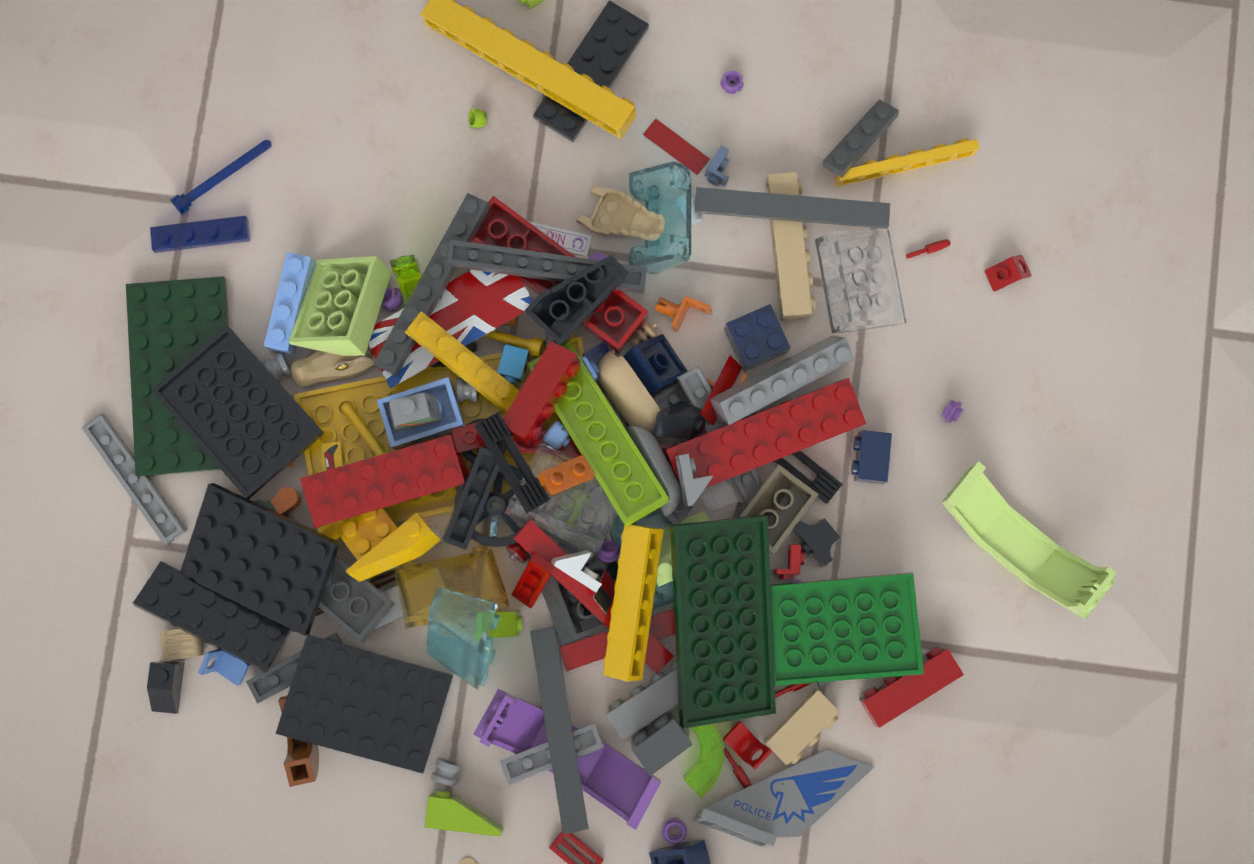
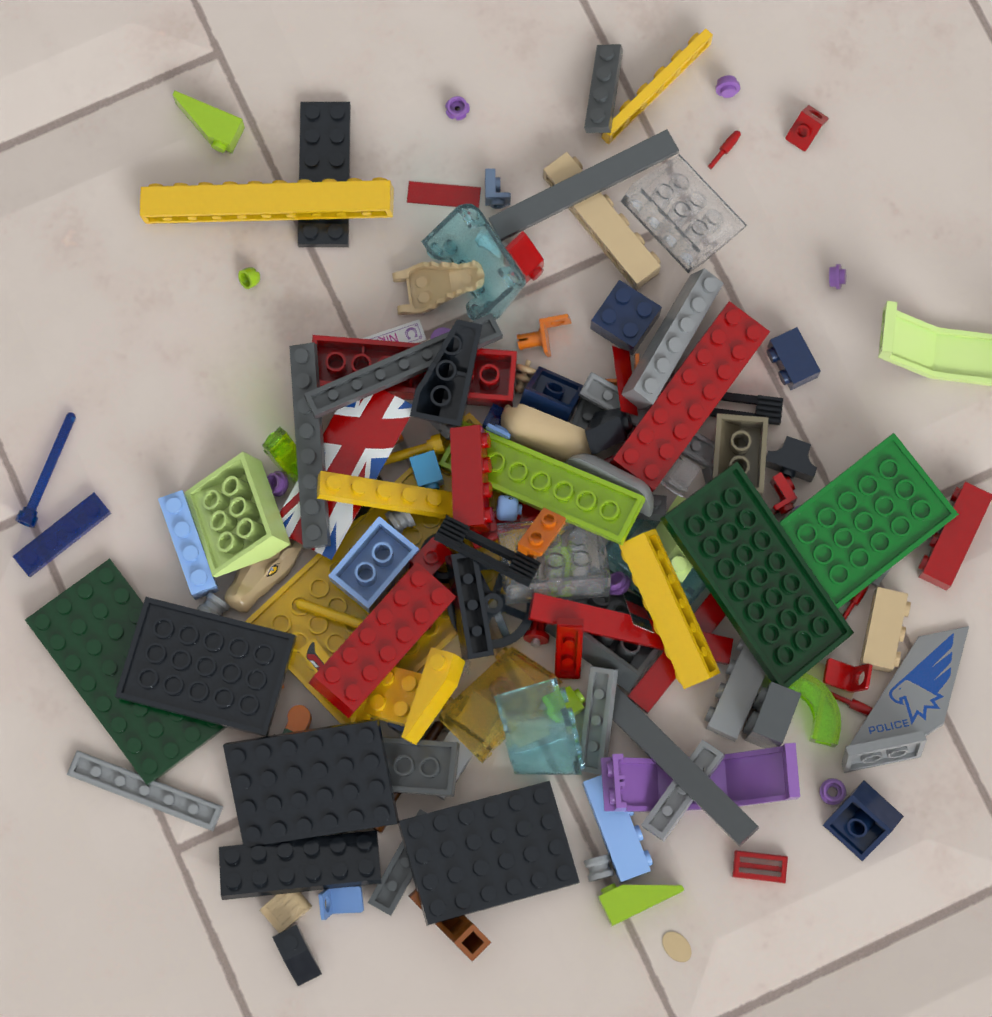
camera: 30 degrees left, 5 degrees down
(414, 411) = (369, 563): light grey torso -> none
(477, 760) = (619, 835): none -> light blue brick
(522, 651) = (598, 717): none -> light grey plate
(572, 565) = (597, 609): white slope -> none
(690, 487) = (654, 476): light grey slope -> none
(705, 238) = (526, 257): none -> red slope
(964, 198) = (727, 86): none -> medium lavender plate

